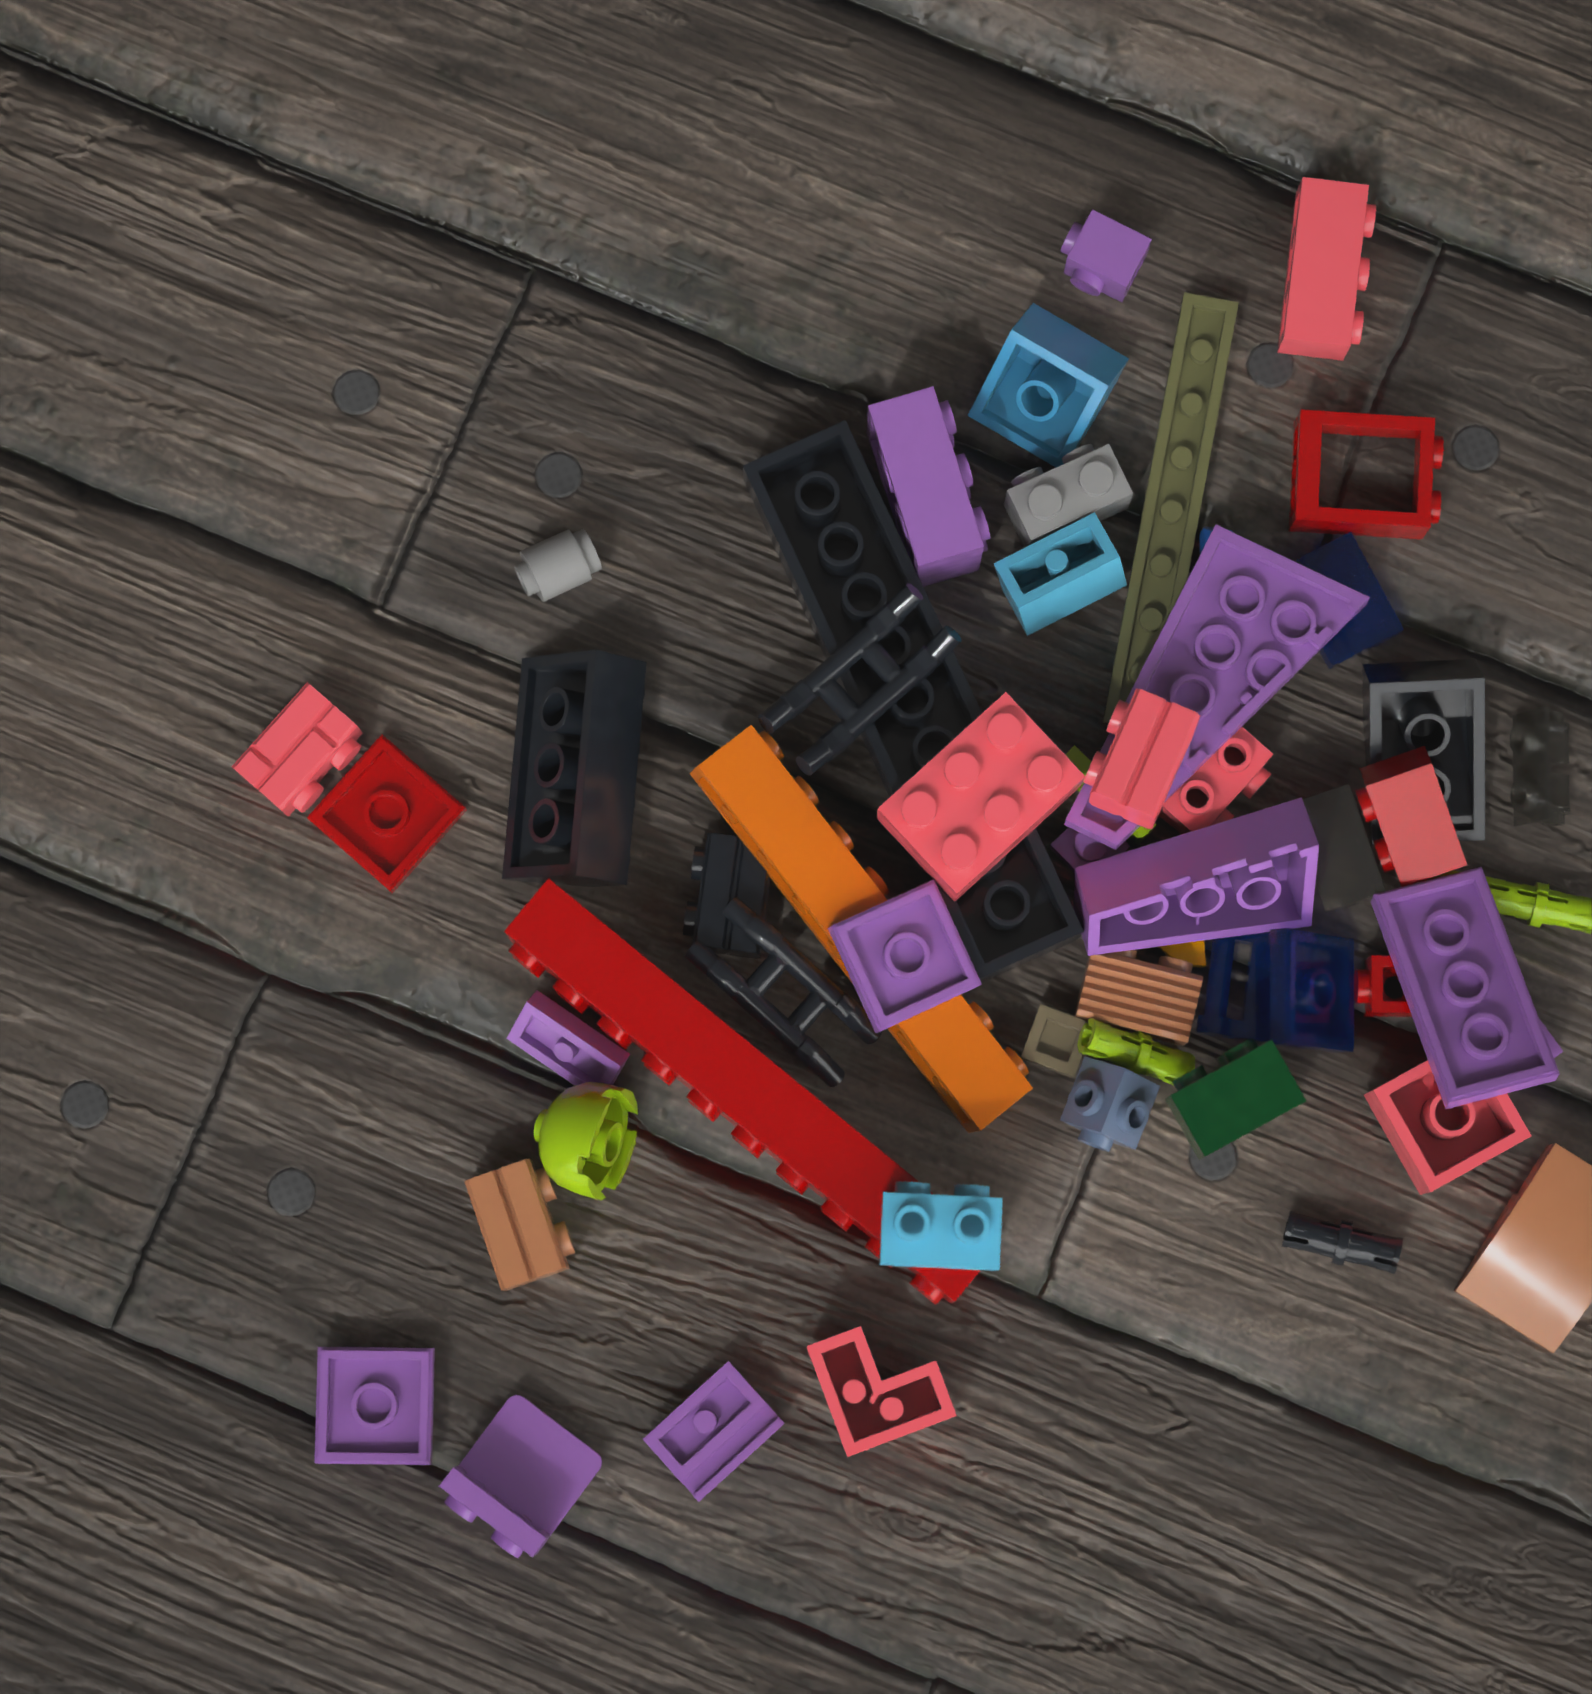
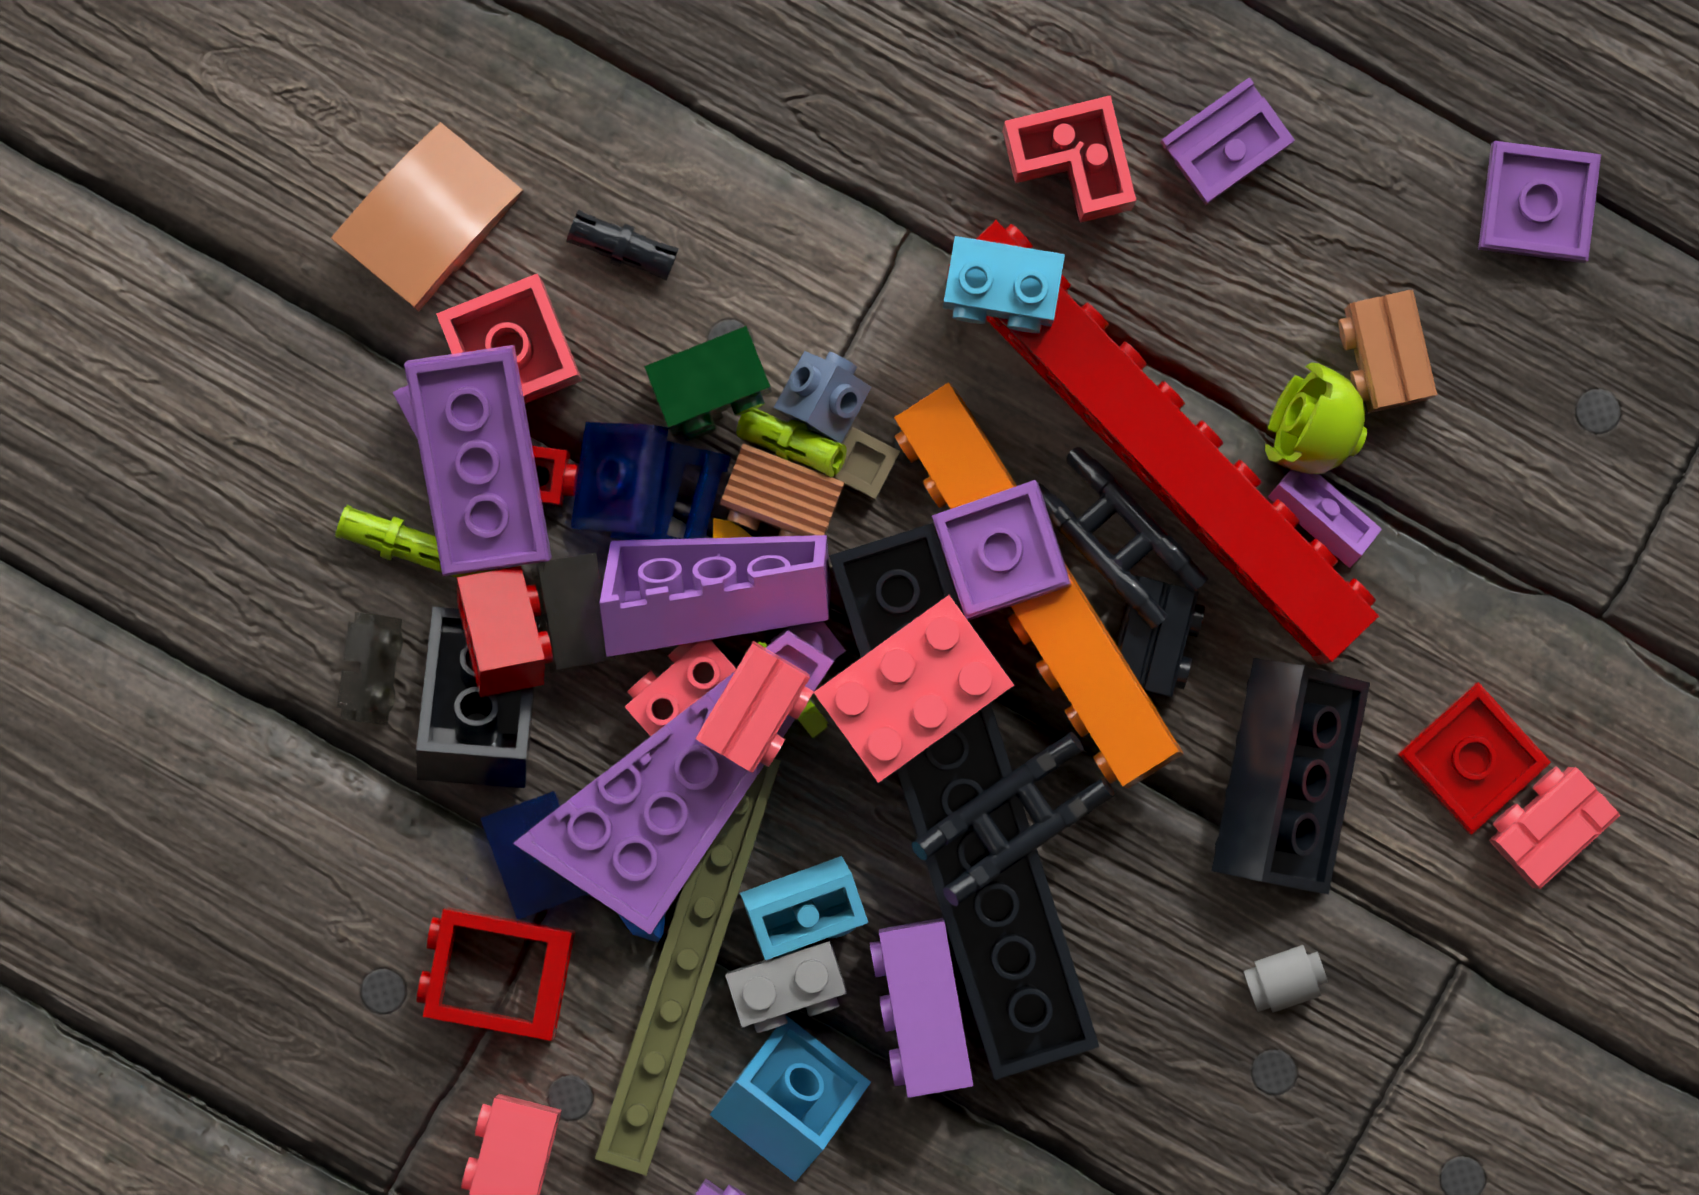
camera: 170 degrees left, 5 degrees up
(521, 1476) = (1411, 119): medium lavender bracket -> none

